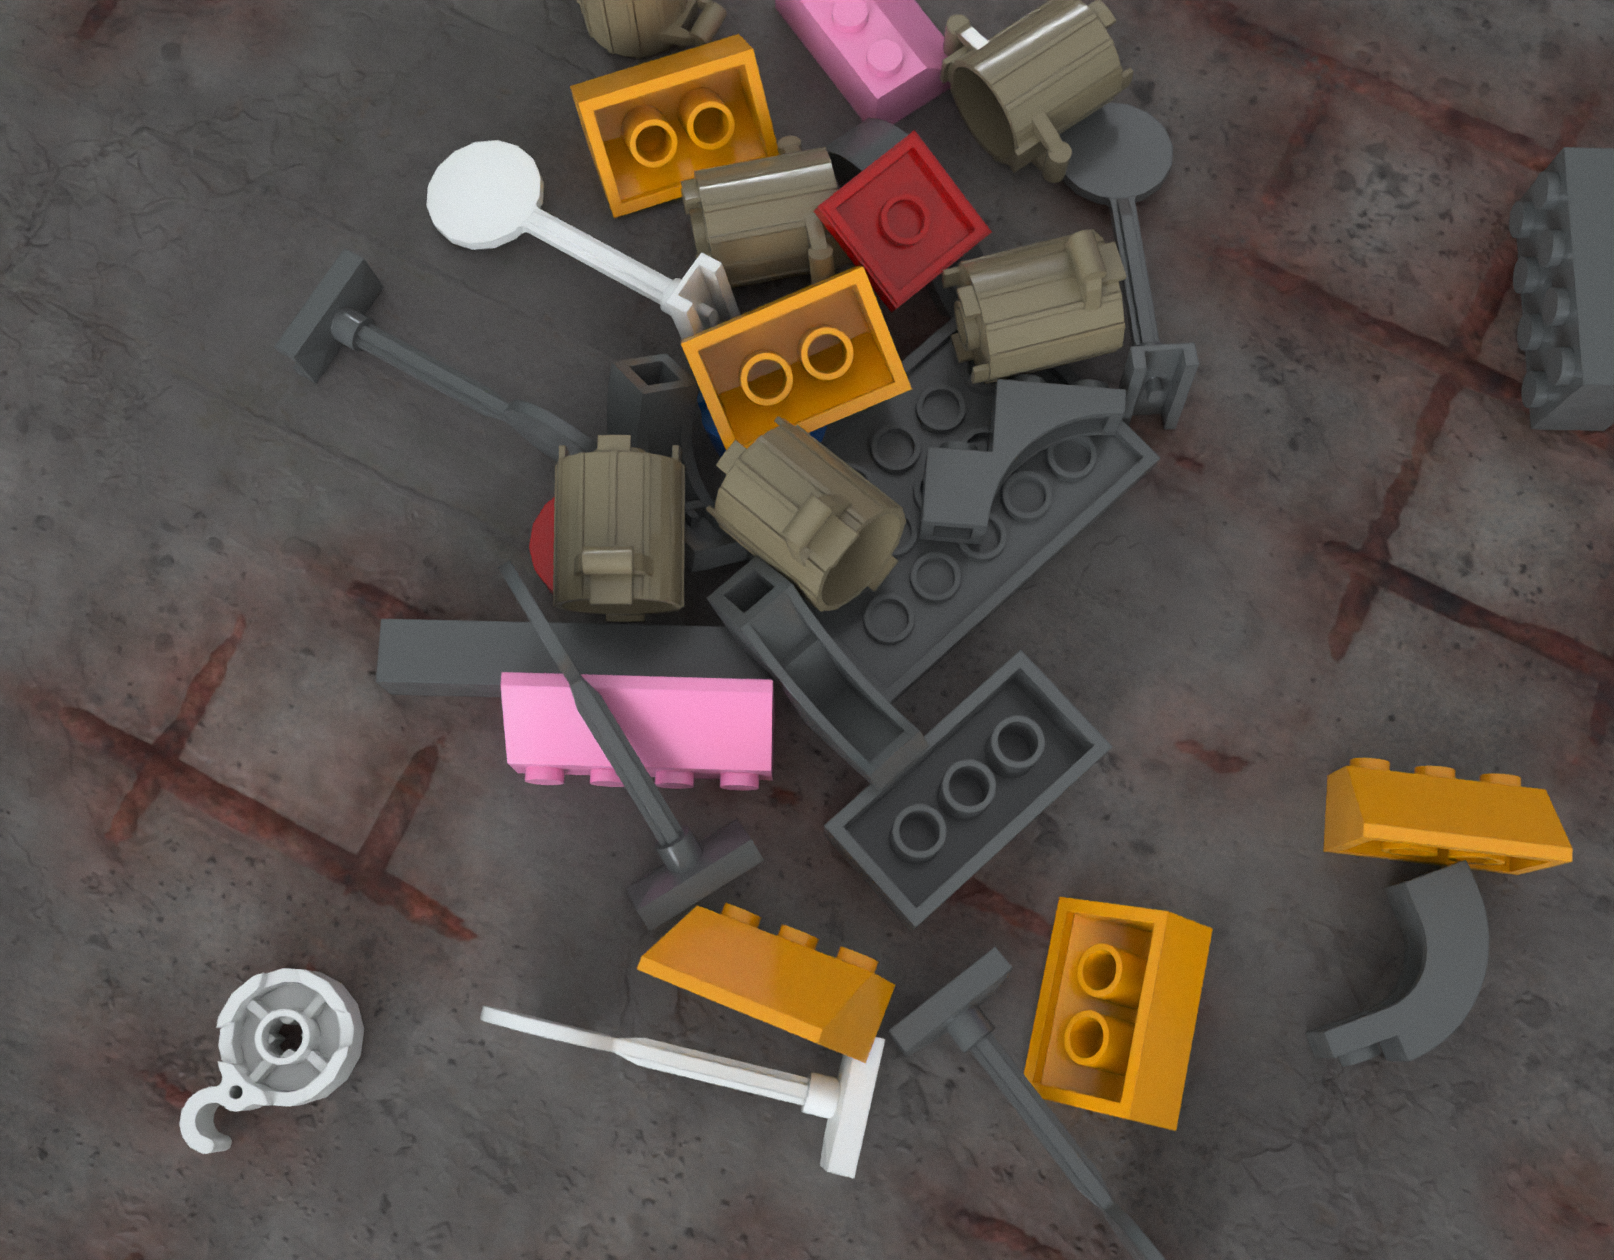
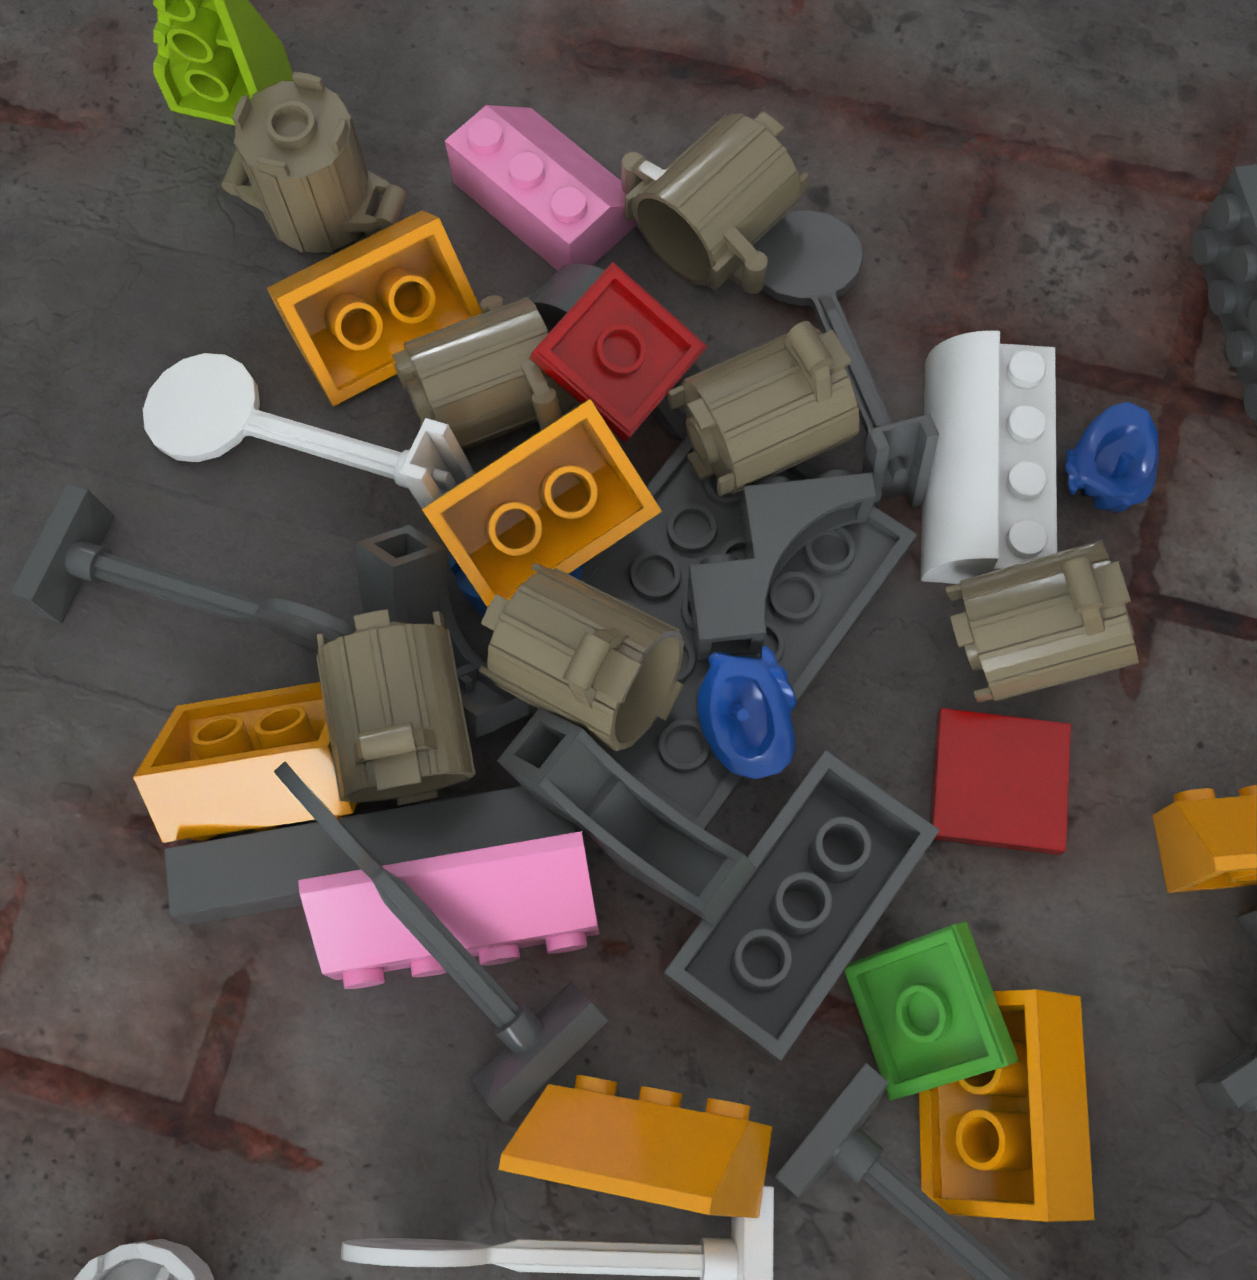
camera: 10 degrees left, 5 degrees down
(445, 550) = (218, 761): none -> light orange slope
(955, 600) = (748, 713): none -> blue hat
(1066, 912) = (930, 1012): none -> bright green tile
(1187, 713) = (1001, 781): none -> red tile
(1250, 398) = (994, 457): none -> white brick
(1261, 569) = (1045, 621): none -> dark tan container
(1376, 420) = (1115, 458): none -> blue hat

